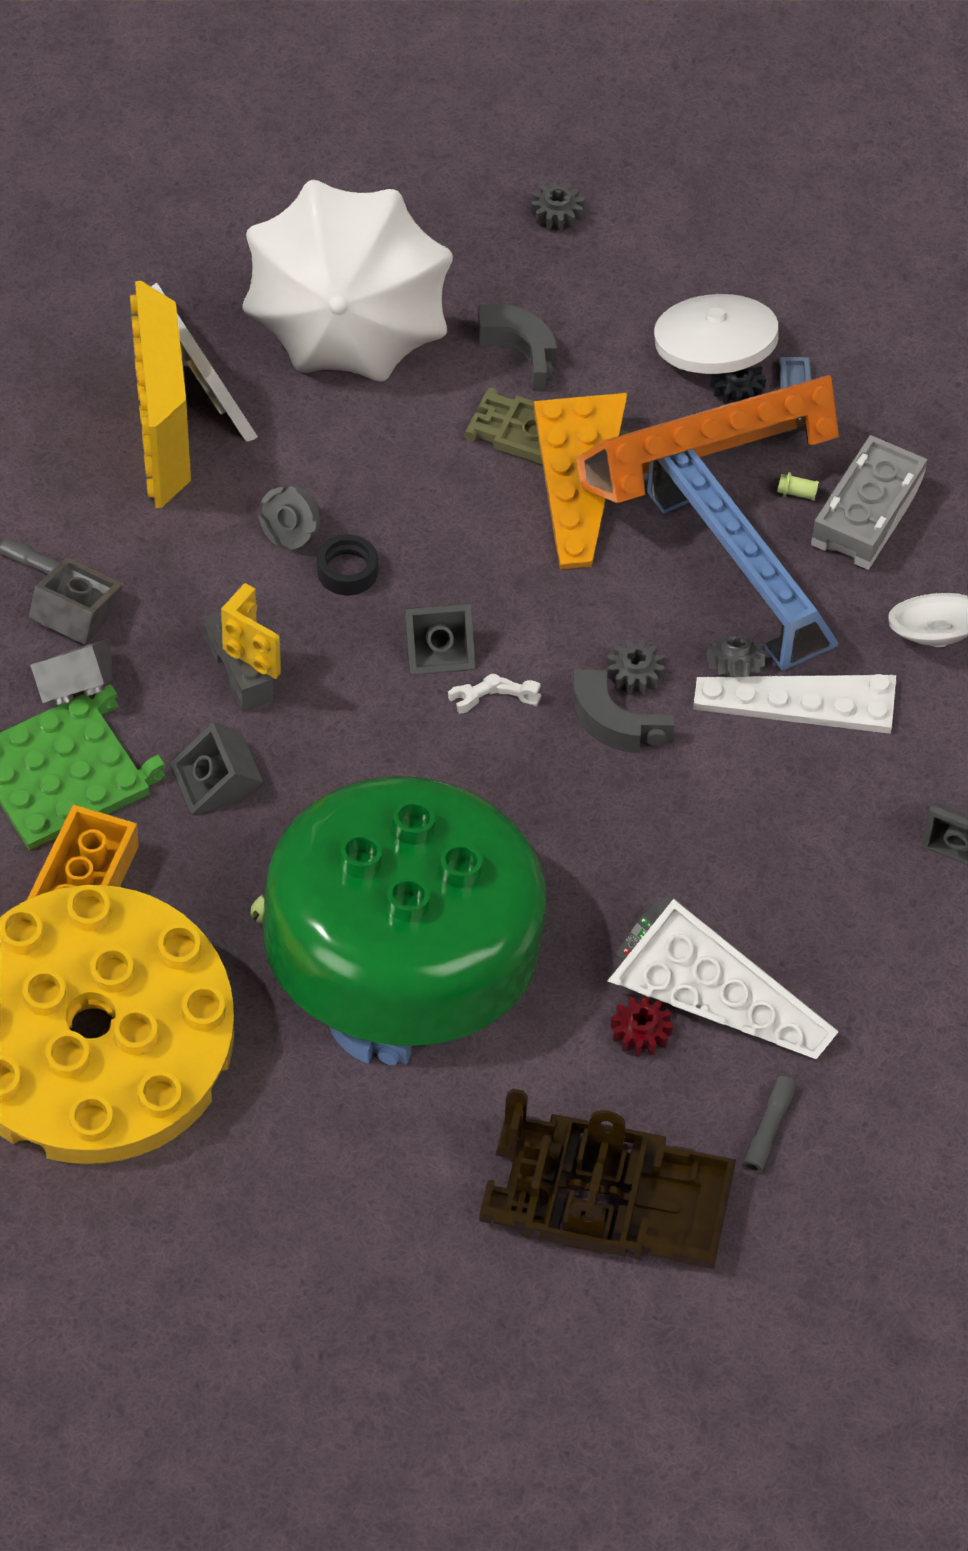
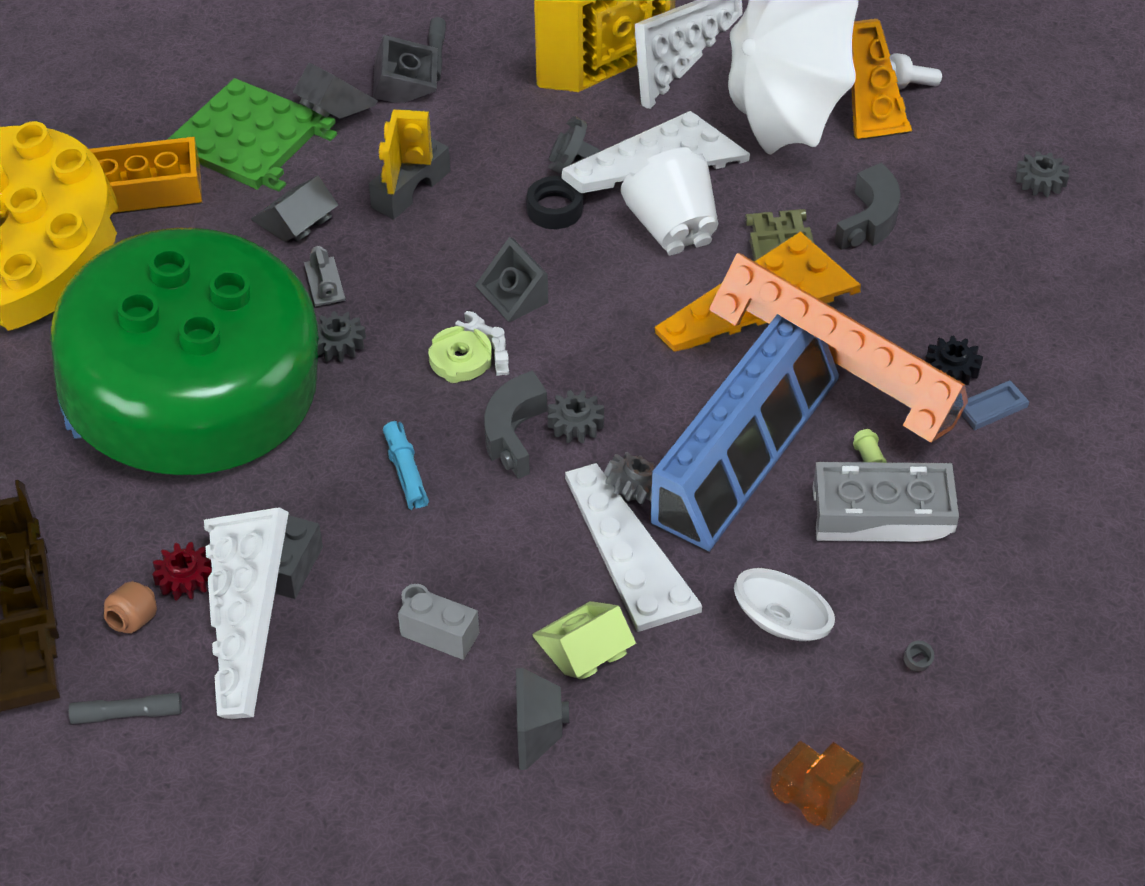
camera: 65 degrees right, 5 degrees down
(316, 783) = (323, 278): none -> light grey hinge
(340, 456) = (632, 155): none -> white wing
(432, 471) = (674, 199): none -> white cone
(499, 735) = (465, 367): none -> yellowish green plate
(612, 815) = (401, 454): none -> medium azure pin
(662, 1080) = (129, 607): none -> nougat head
(716, 333) = (990, 323): white dish -> none
(810, 860) = (437, 621): none -> light grey hinge
(885, 766) = (586, 638): none -> yellowish green slope

